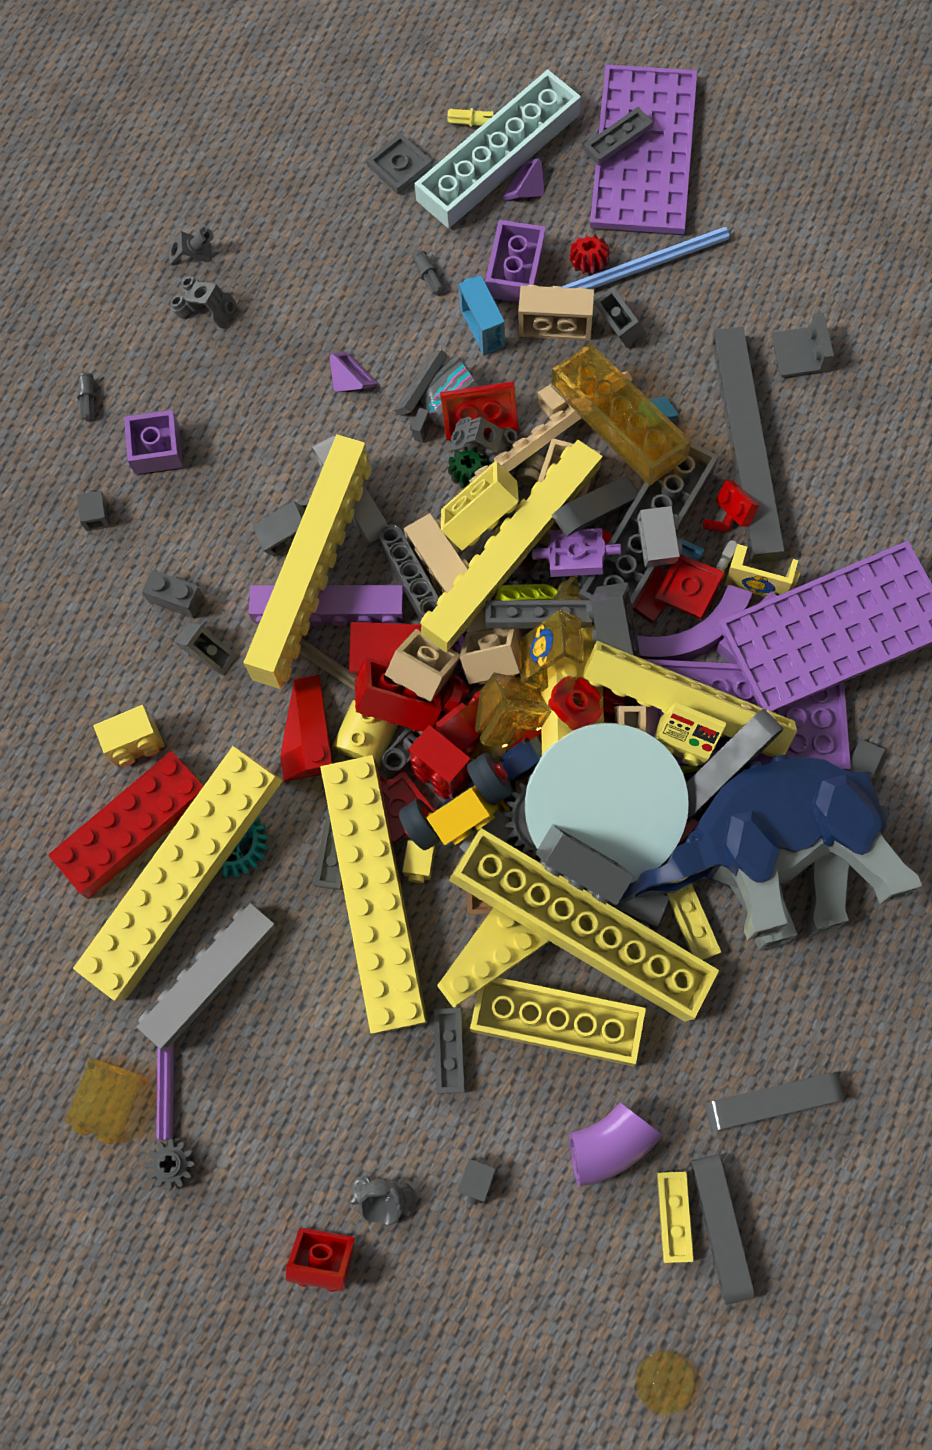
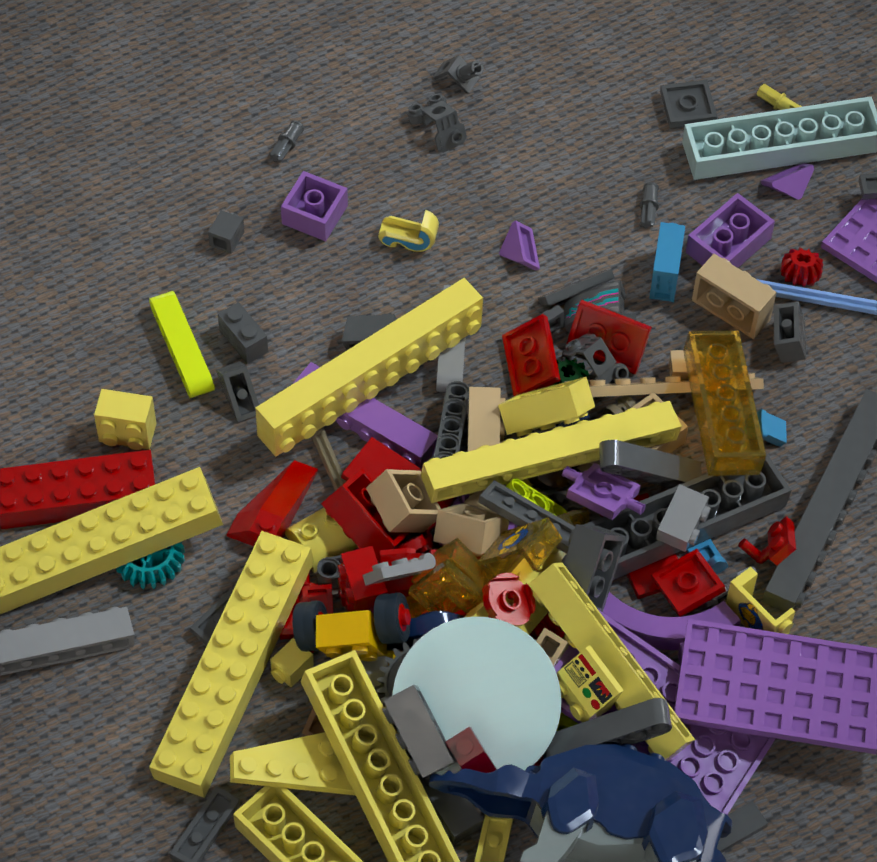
camera: 25 degrees right, 15 degrees down
(127, 636) = (181, 344): none -> neon yellow beam
(250, 418) = (409, 234): none -> light yellow animal
(428, 467) = (531, 356): none -> red tile
(469, 732) = (400, 569): none -> light grey plate
(633, 853) = (470, 752): none -> dark red slope

